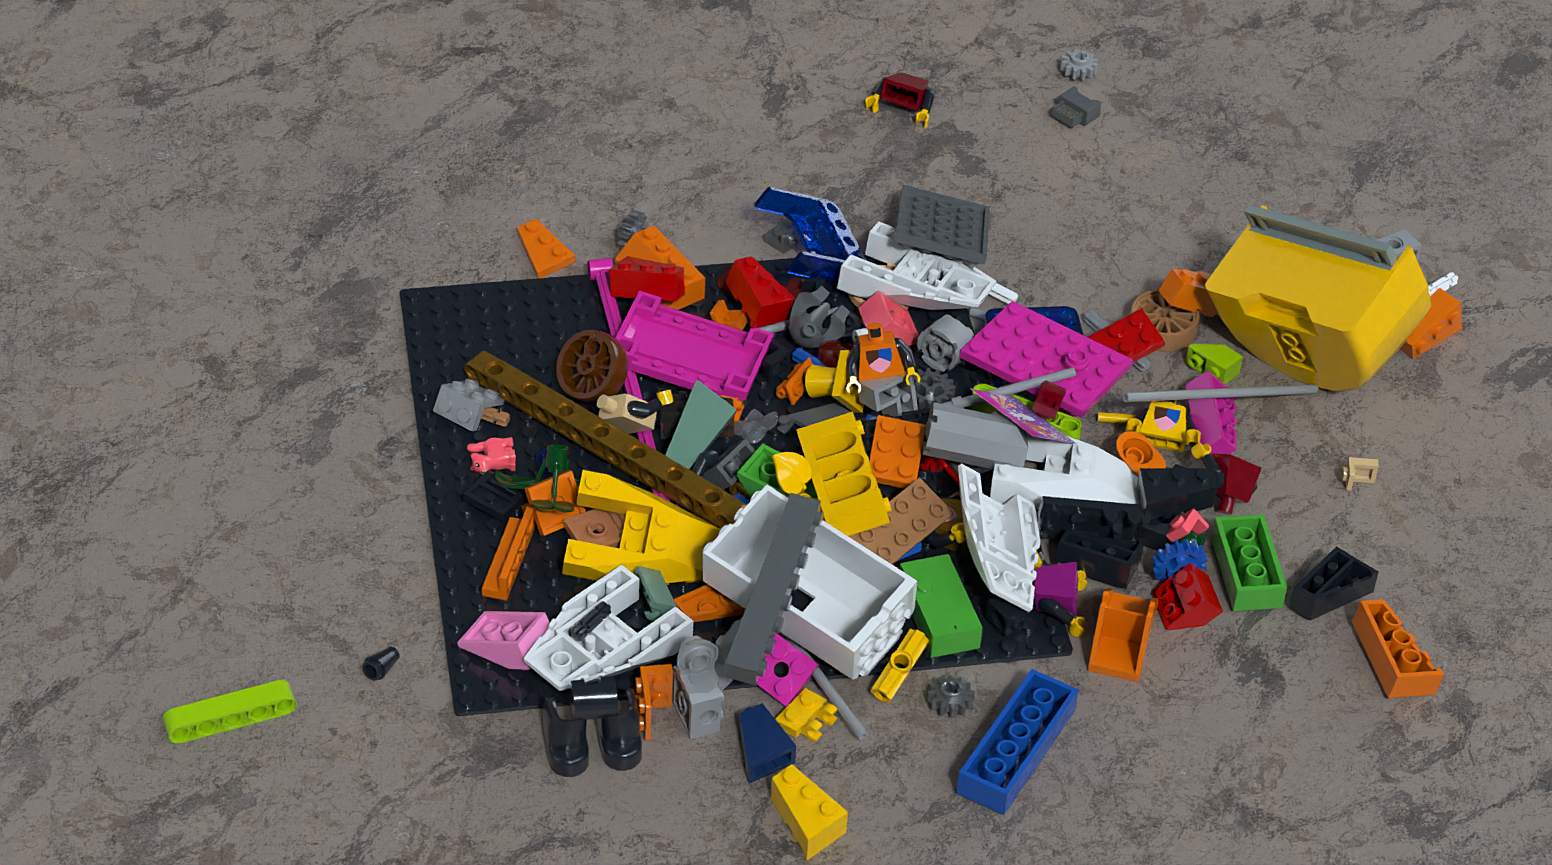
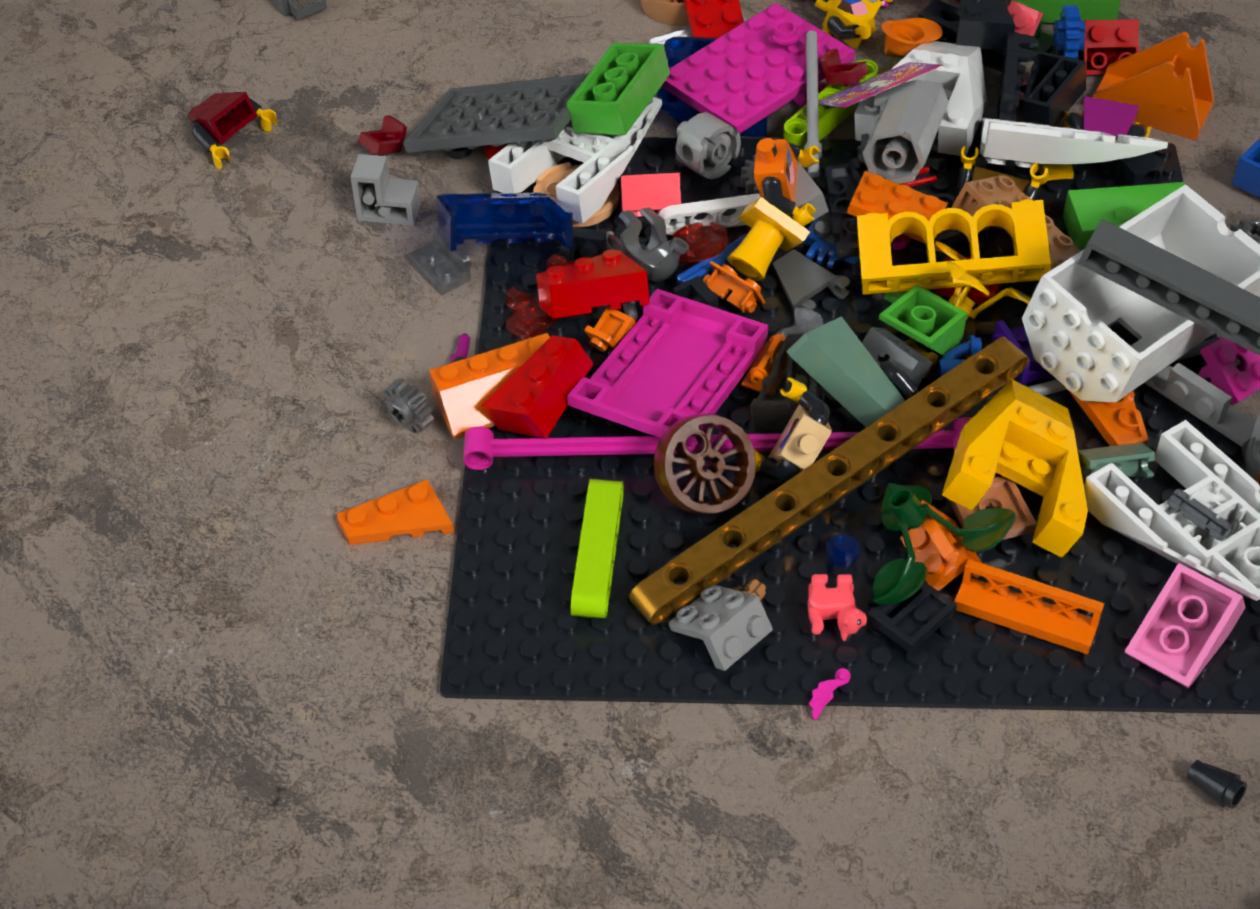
camera: 75 degrees left, 5 degrees up
(424, 462) = (824, 692): none -> dark pink piece
(519, 336) = (597, 549): none -> lime beam
(702, 256) = (462, 348): none -> magenta piece
(847, 183) = (381, 197): none -> light grey brick
(915, 178) = (386, 140): none -> dark red bracket
(968, 270) = (618, 88): none -> bright green brick

